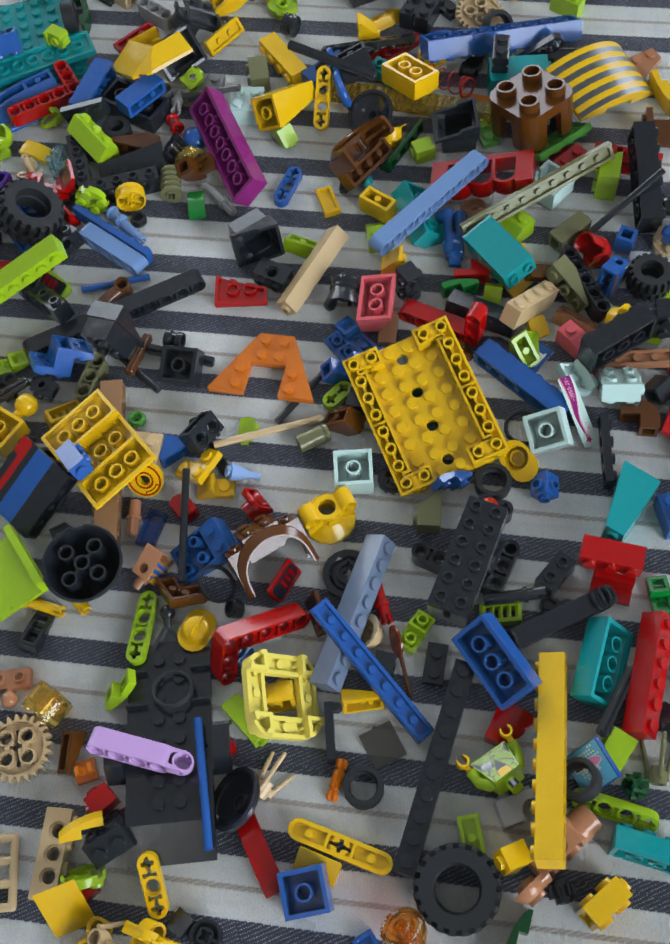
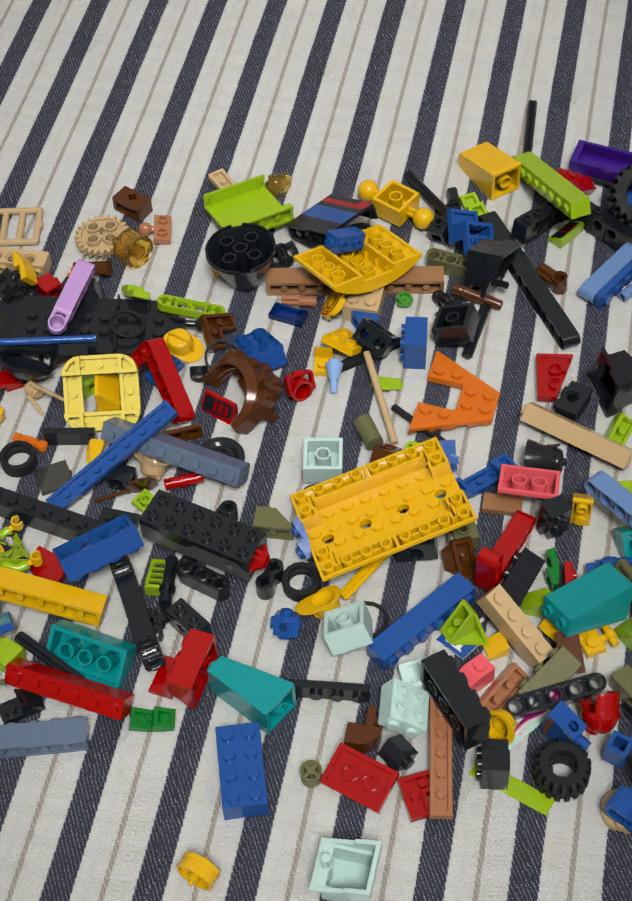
camera: 90 degrees right, 10 degrees down
(33, 645) = (194, 244): black slope -> none
(56, 411) = (414, 236): yellow slope -> none
(109, 284) = (570, 284): blue bar -> none
(134, 389) = (441, 298): none -> black axle
(150, 566) = (246, 310): nougat torso -> none
(173, 338) = (493, 323): black wheel -> none
(175, 505) = (303, 333): red brick -> none
(183, 525) = (280, 328): black piece -> none
(204, 396) = (414, 342): none -> blue brick
(333, 527) = (279, 442): yellow piece -> none
(339, 345) = (477, 462): blue slope -> none
(578, 411) = (376, 663): sticker -> none

